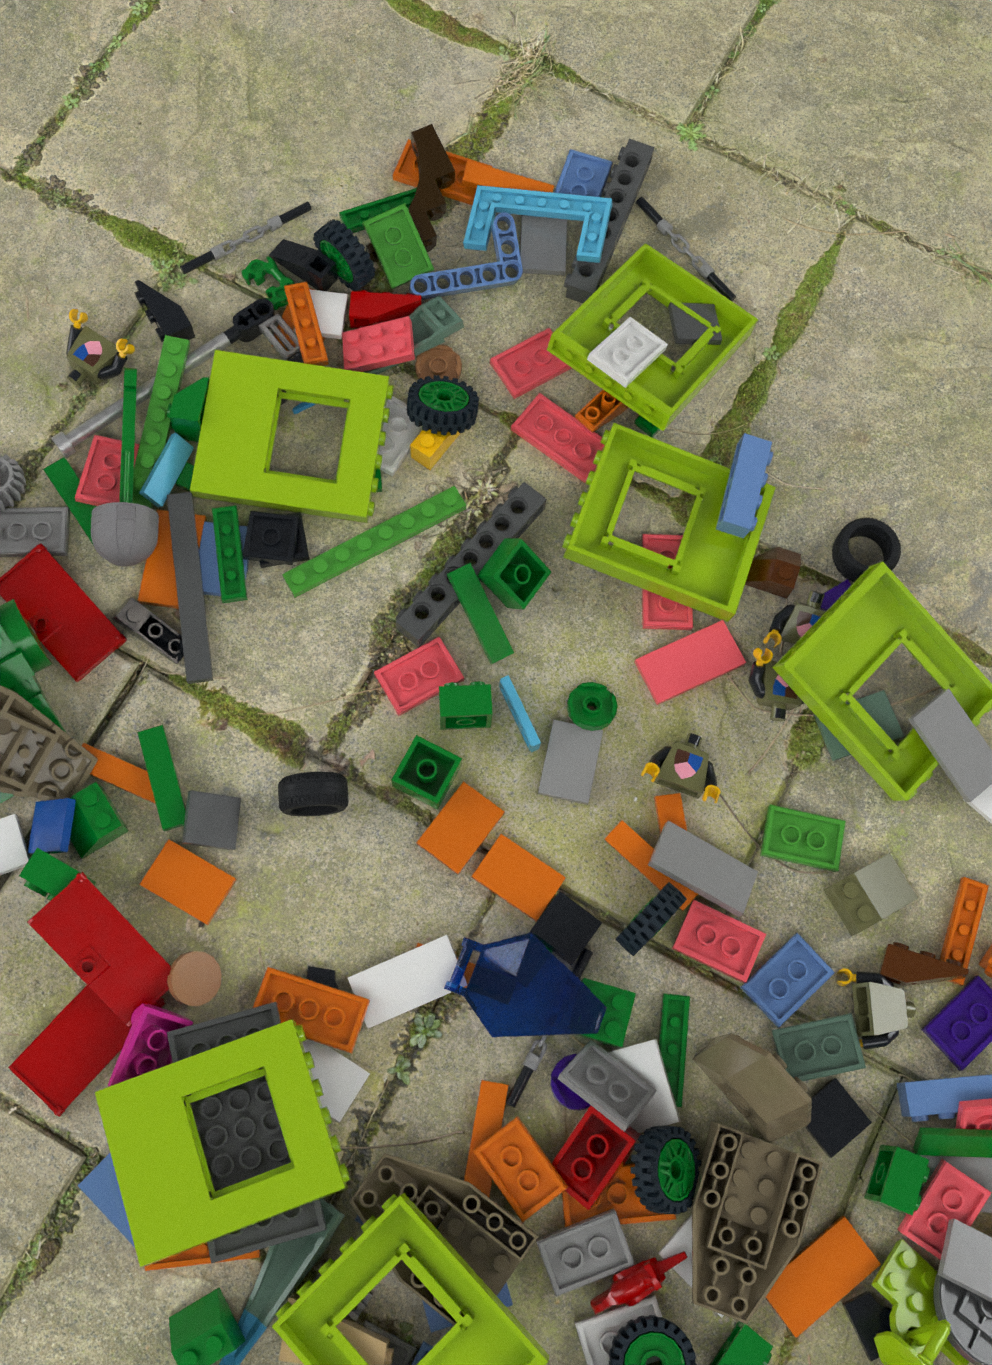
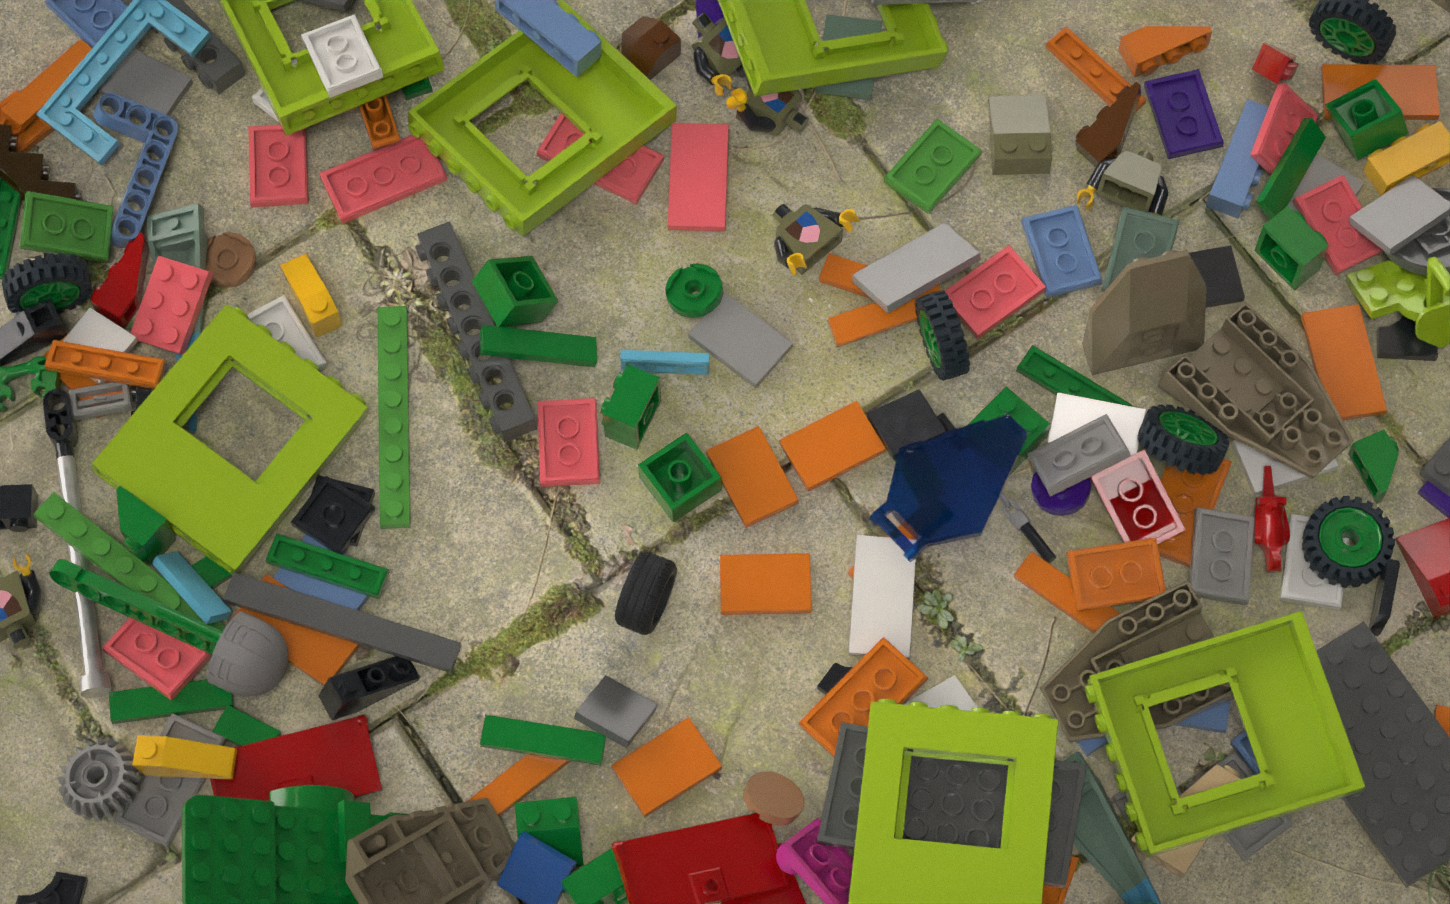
camera: 55 degrees left, 5 degrees down
(26, 529) = (183, 758): none -> yellow slope
(78, 561) = (242, 728): none -> green tile
(376, 883) = (765, 584): none -> orange tile
(442, 405) = (283, 271): black wheel -> none

